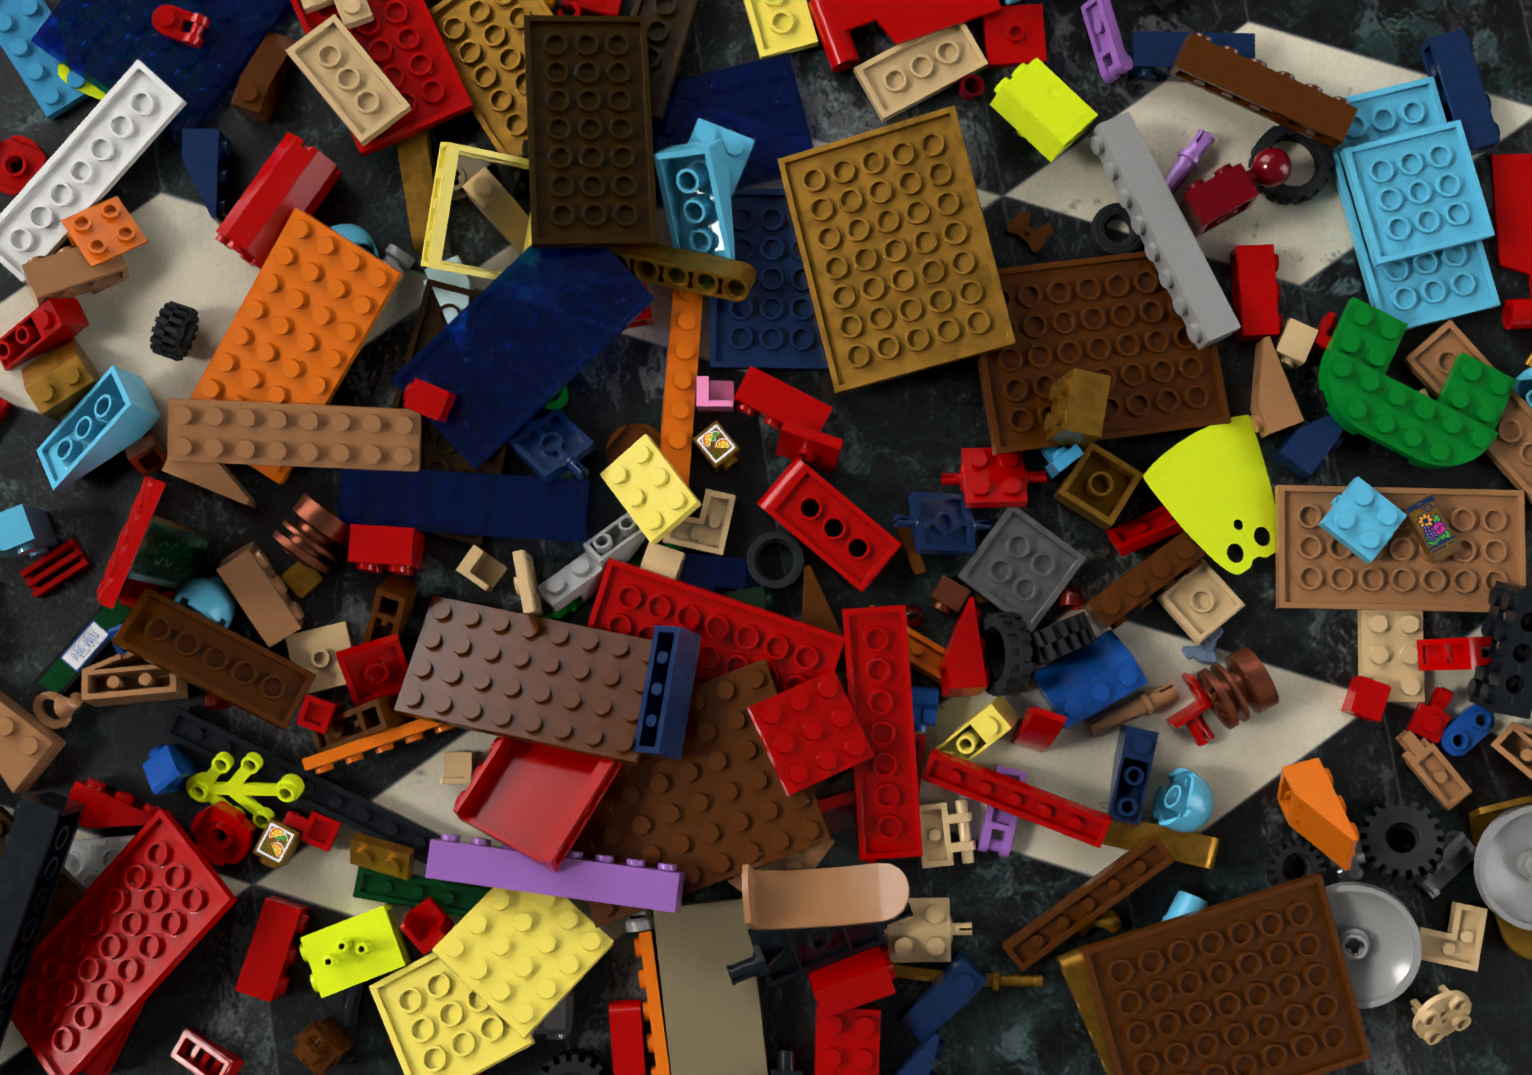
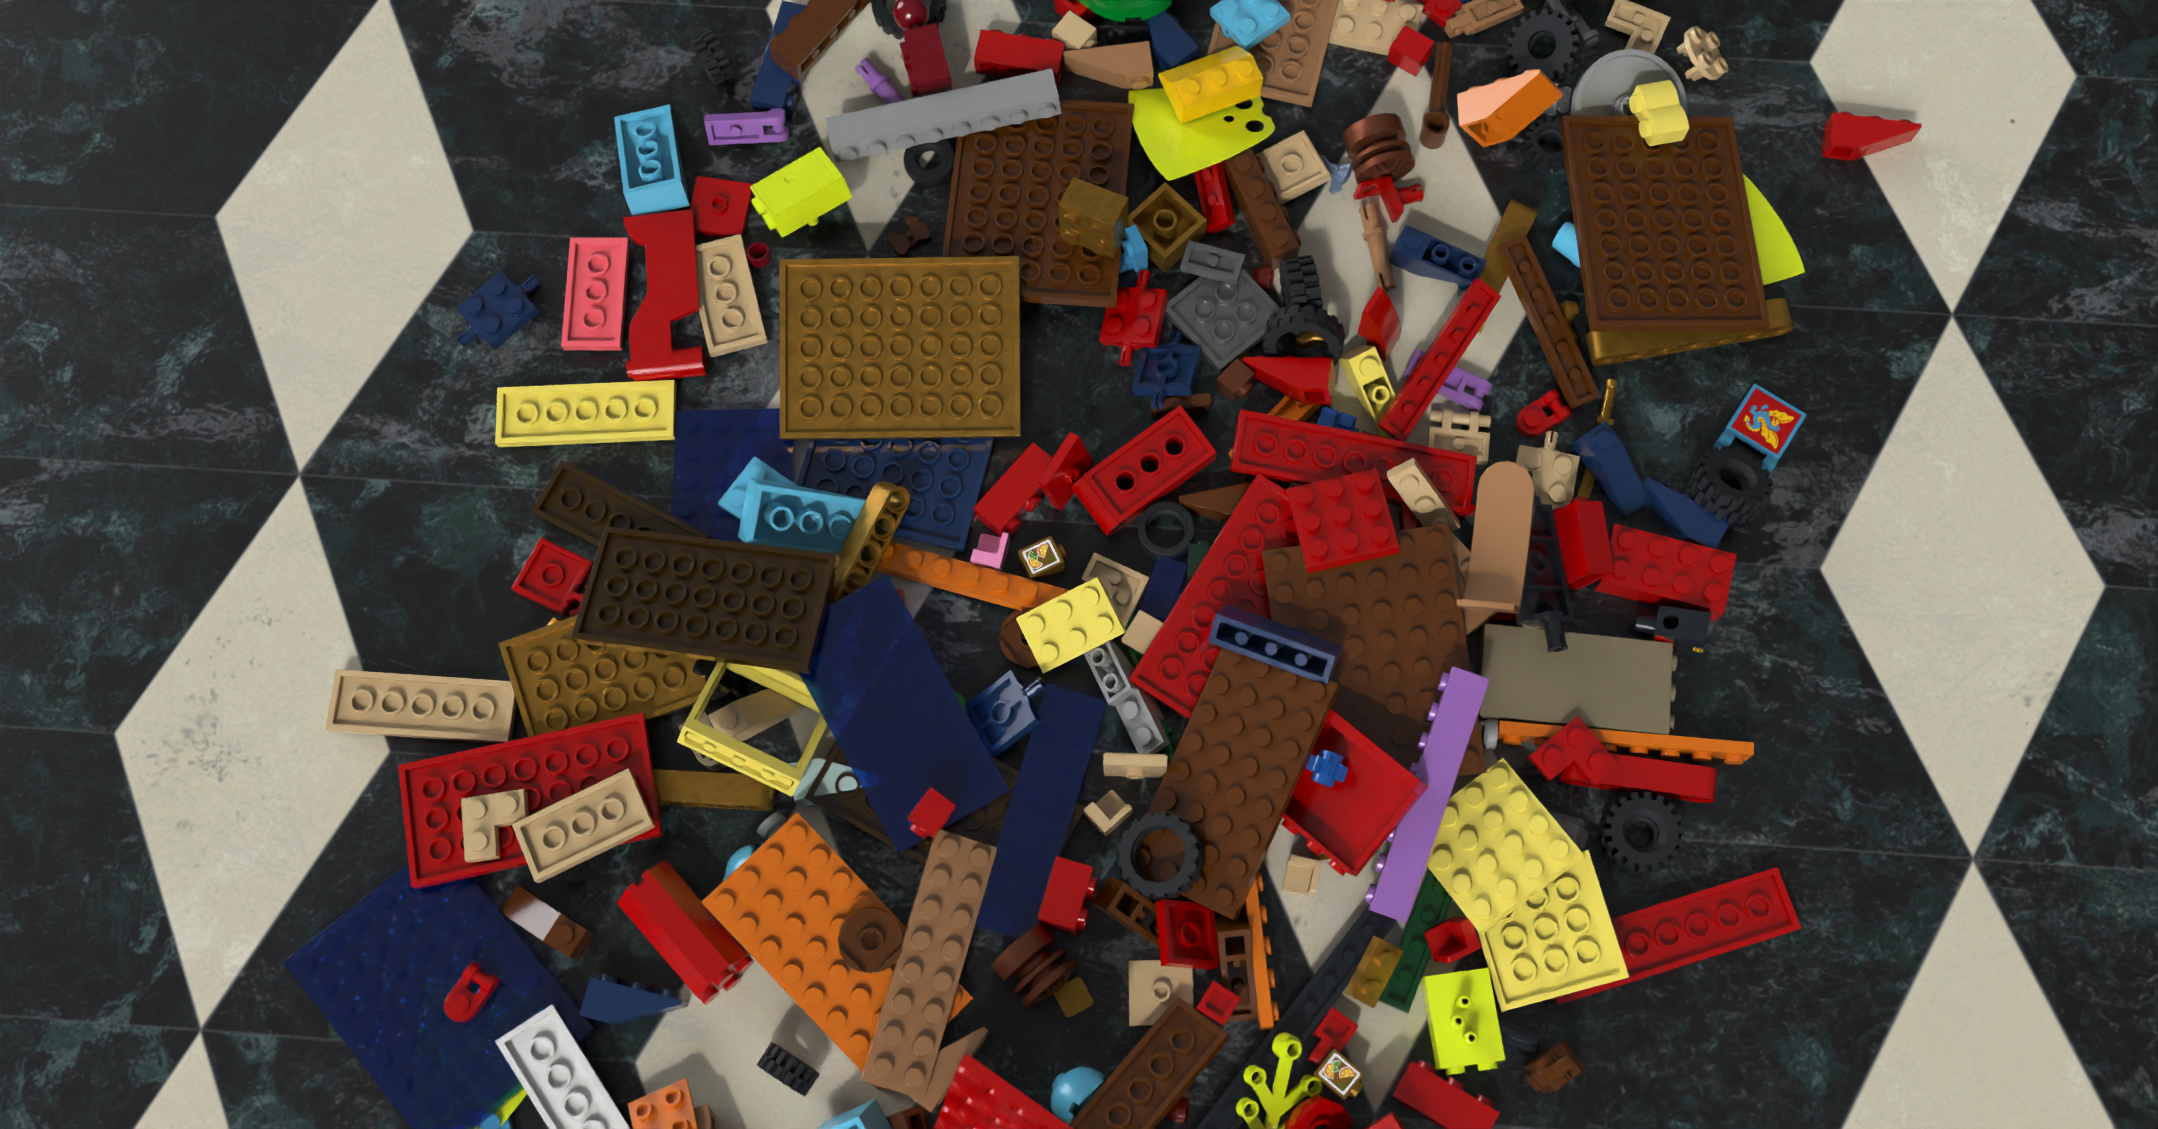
camera: 70 degrees left, 10 degrees down
(261, 593) = (1080, 1036): medium nougat wedge -> none
(316, 370) = (870, 958): none -> reddish brown plate
(423, 605) = (1130, 849): none -> black tyre
(555, 769) = (1327, 768): none -> blue gear
(640, 1008) = (1576, 745): none -> red plate
(859, 810) = (1422, 495): none -> tan plate
(980, 907) = (1533, 420): none -> red plate
(1068, 543) = (1212, 262): none -> dark grey plate
(1089, 678) = (1343, 272): blue slope -> none
(1184, 802) = (1471, 220): medium azure cylinder -> none
(1272, 496) = (1212, 83): none -> yellow slope
(1317, 739) = (1436, 116): none -> reddish brown axle
(1349, 978) = (1659, 113): none -> light yellow brick

